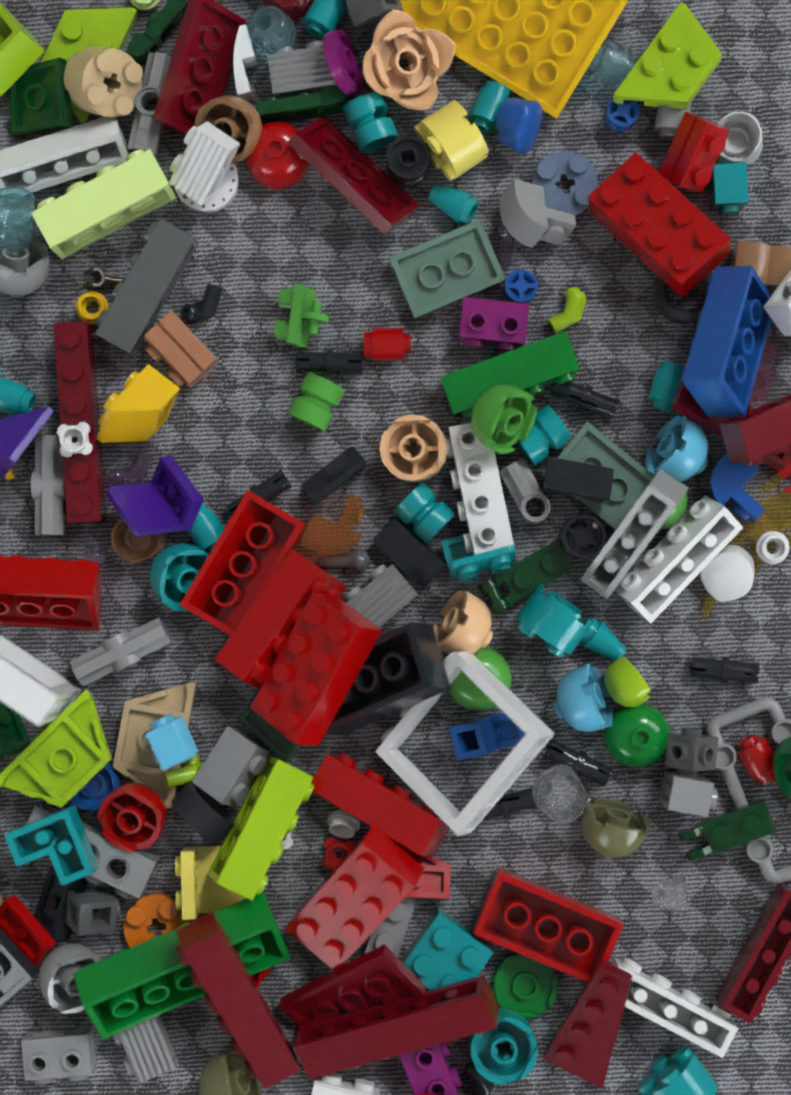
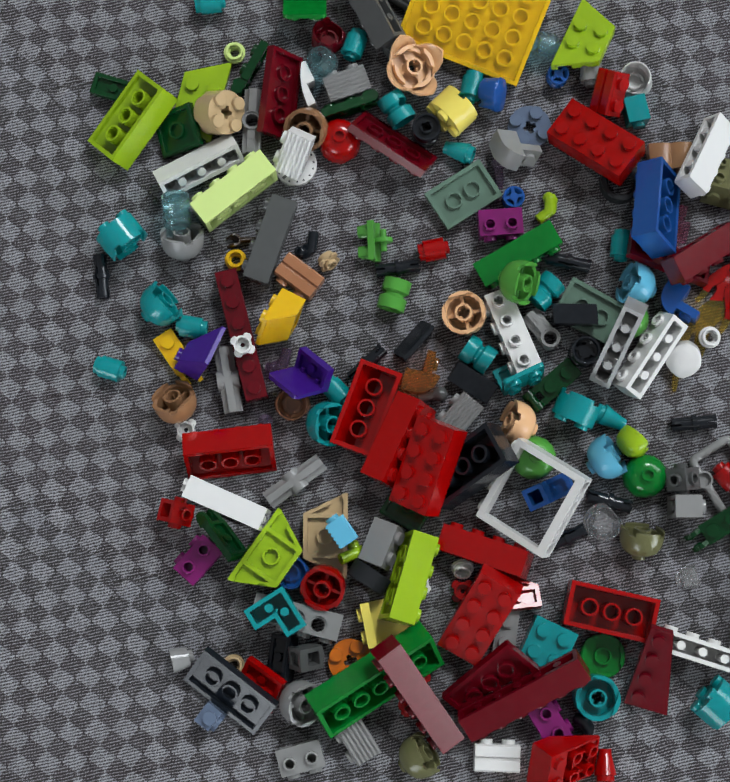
camera: 20 degrees left, 5 degrees down
(228, 333) = (328, 261): none -> tan plate
(340, 58) = (371, 72): magenta tile -> none

